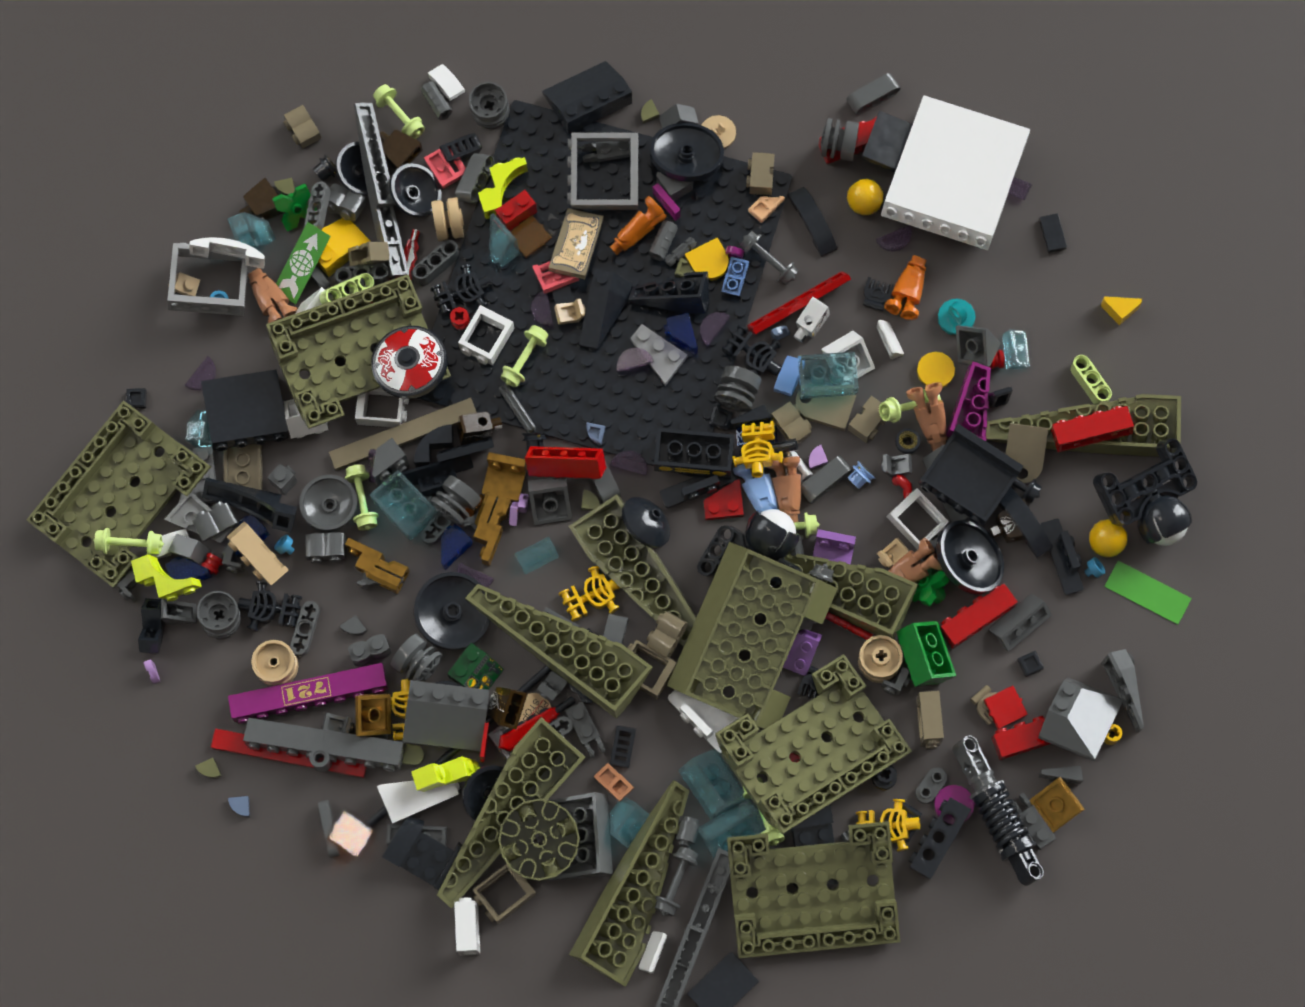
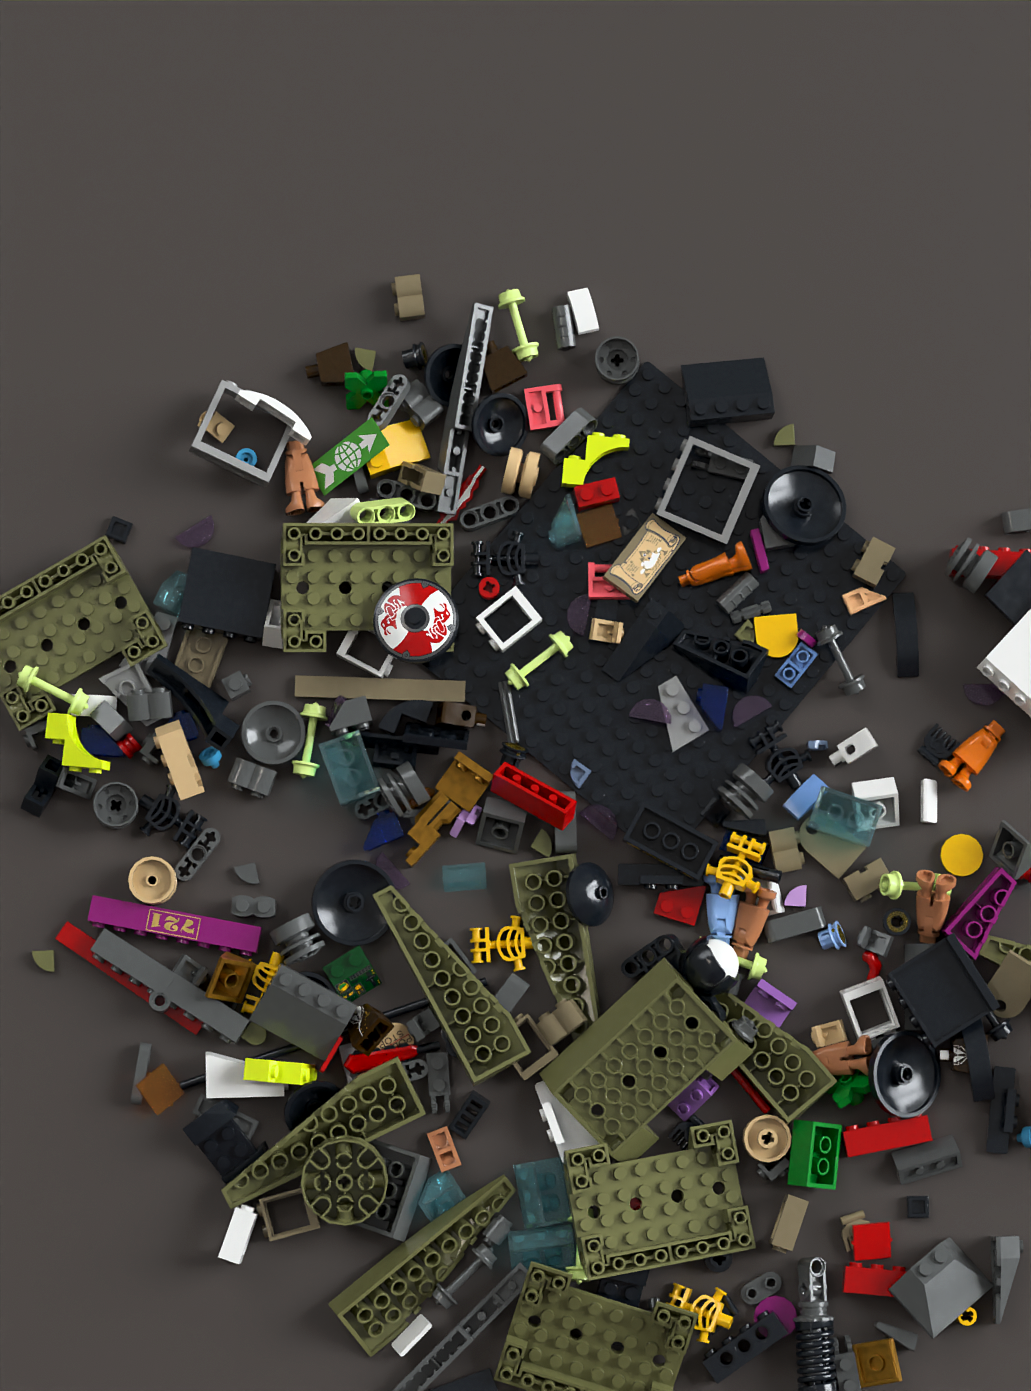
camera: 15 degrees right, 10 degrees up
(151, 668) = (25, 830): lavender tile -> none
(240, 805) = (61, 1011): sand blue tile -> none
(251, 229) = (307, 396): clear light blue slope -> none
(375, 569) = (294, 825): pearl gold plate -> none
(470, 141) = (581, 395): black slope -> none
(722, 128) = (854, 487): tan piece -> none
(798, 302) = (850, 721): red tile -> none
(865, 197) = (971, 635): yellow helmet -> none
(955, 313) = (1009, 804): teal tile -> none
(999, 397) = (1013, 913): black slope -> none

